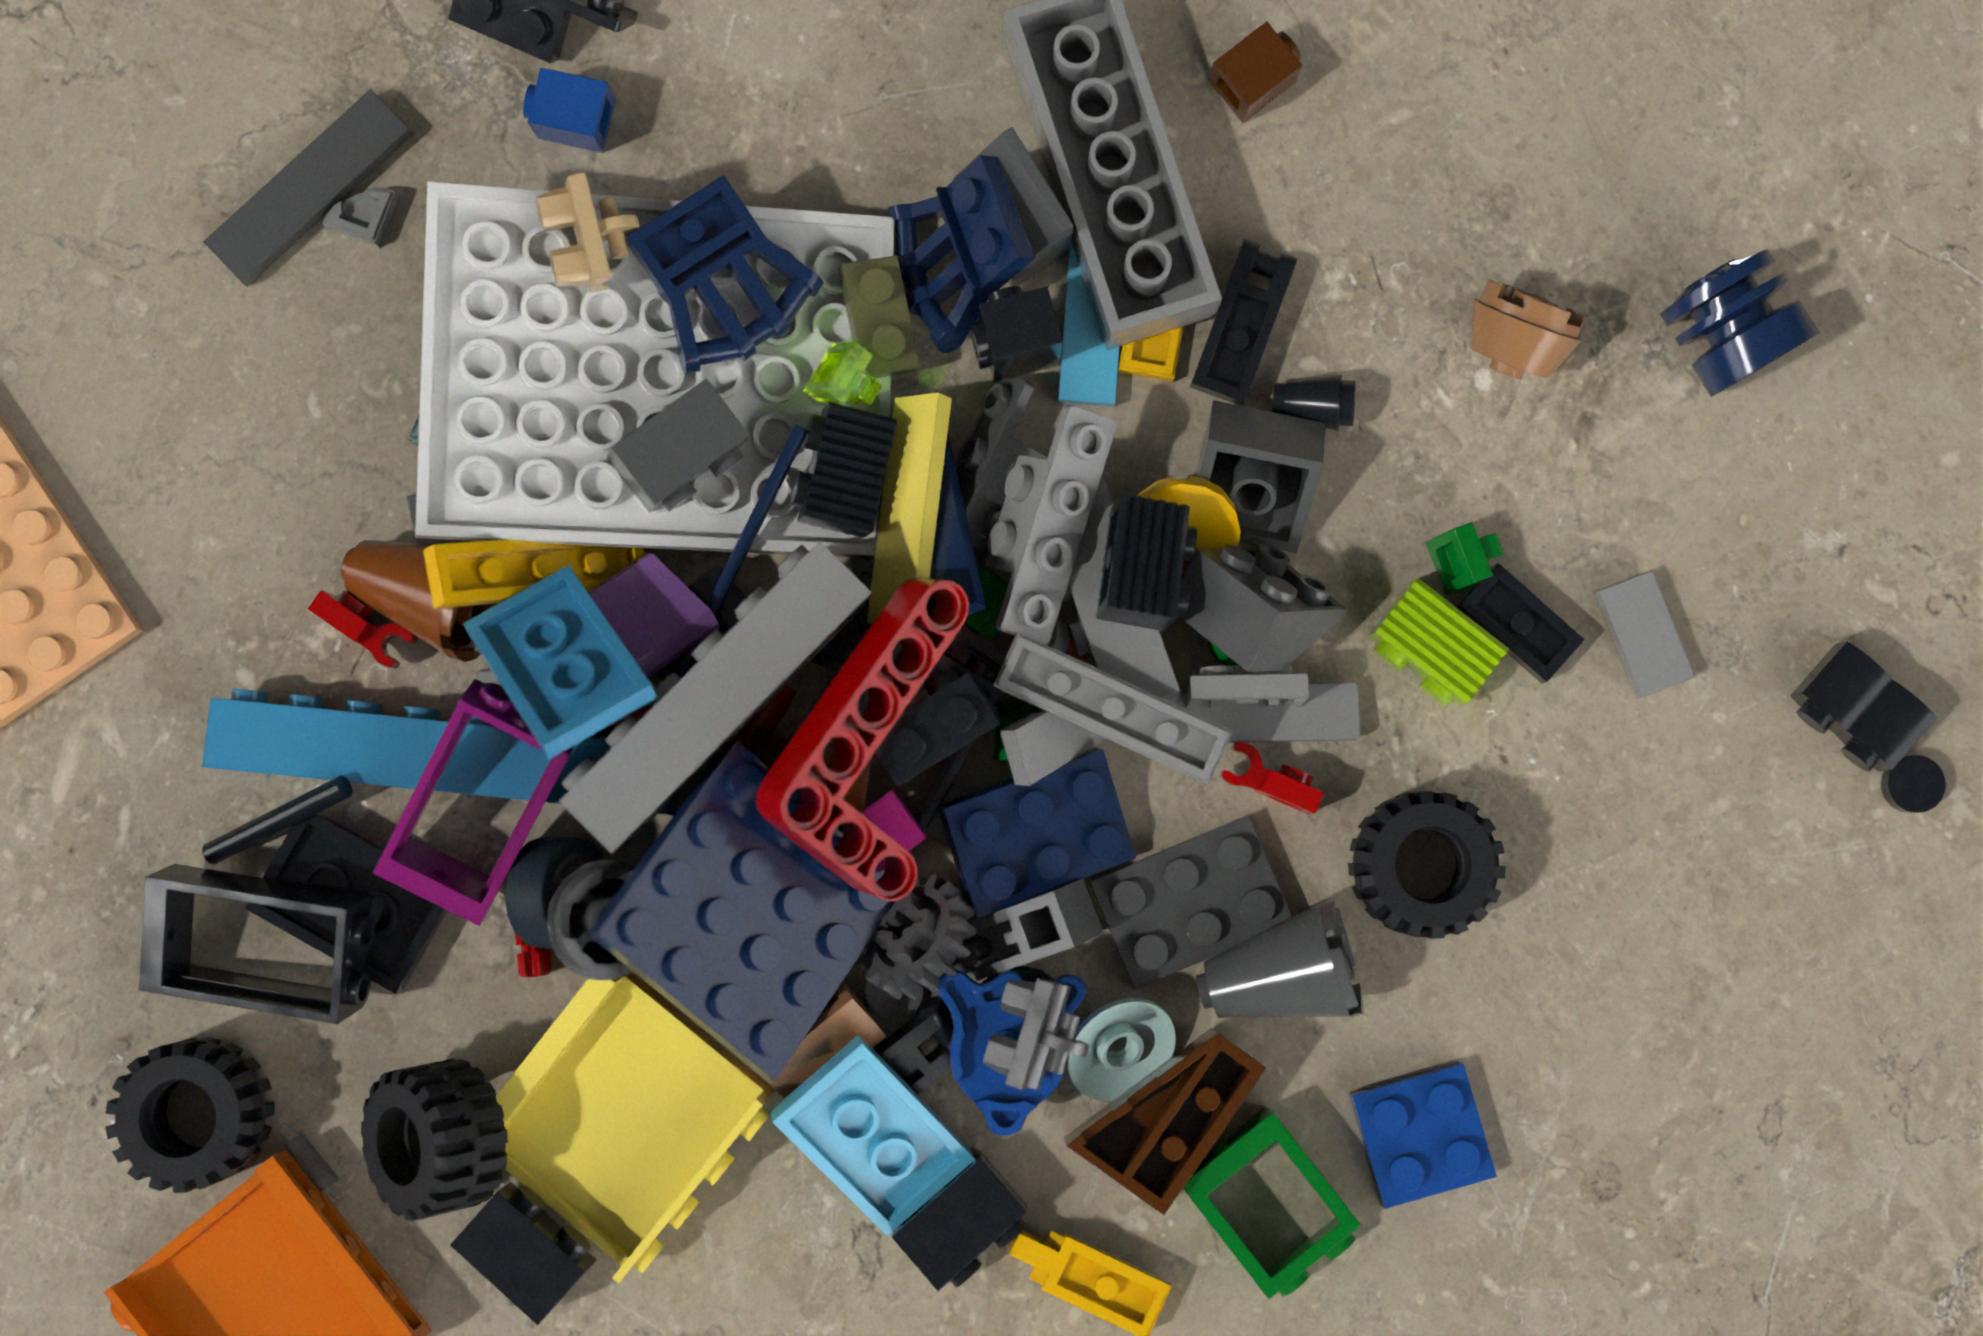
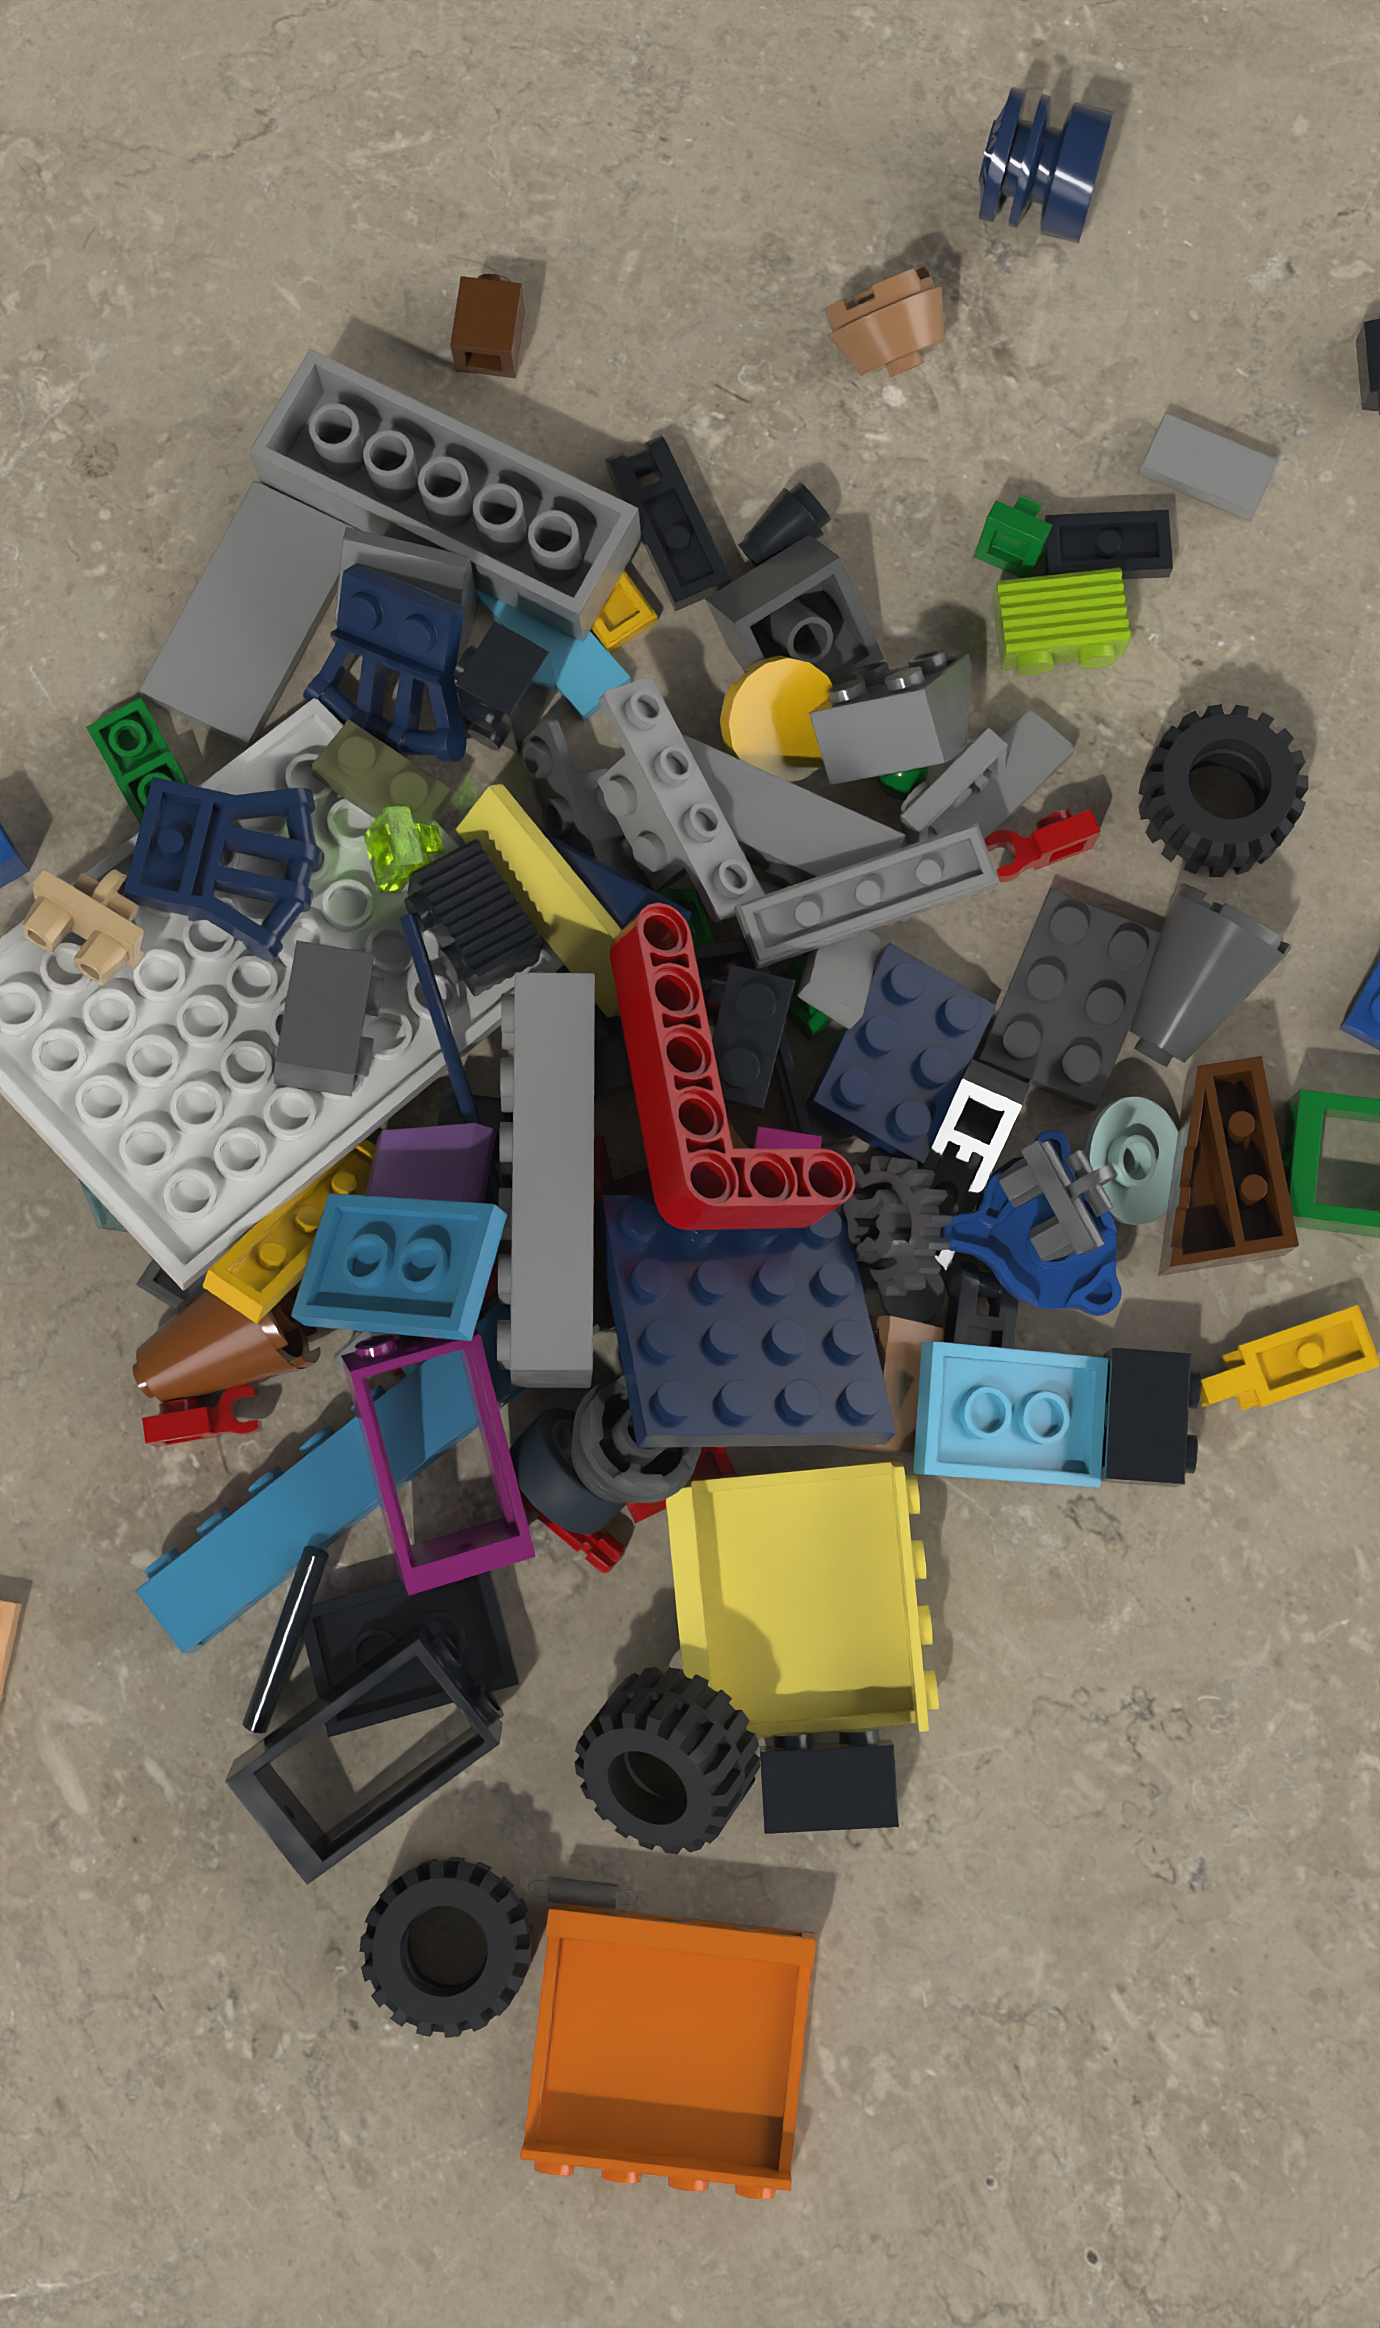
camera: 40 degrees left, 5 degrees down
(744, 146) = (135, 752): none -> green slope
(908, 119) = (249, 616): none -> light grey tile
(1146, 563) = (780, 760): black brick -> none

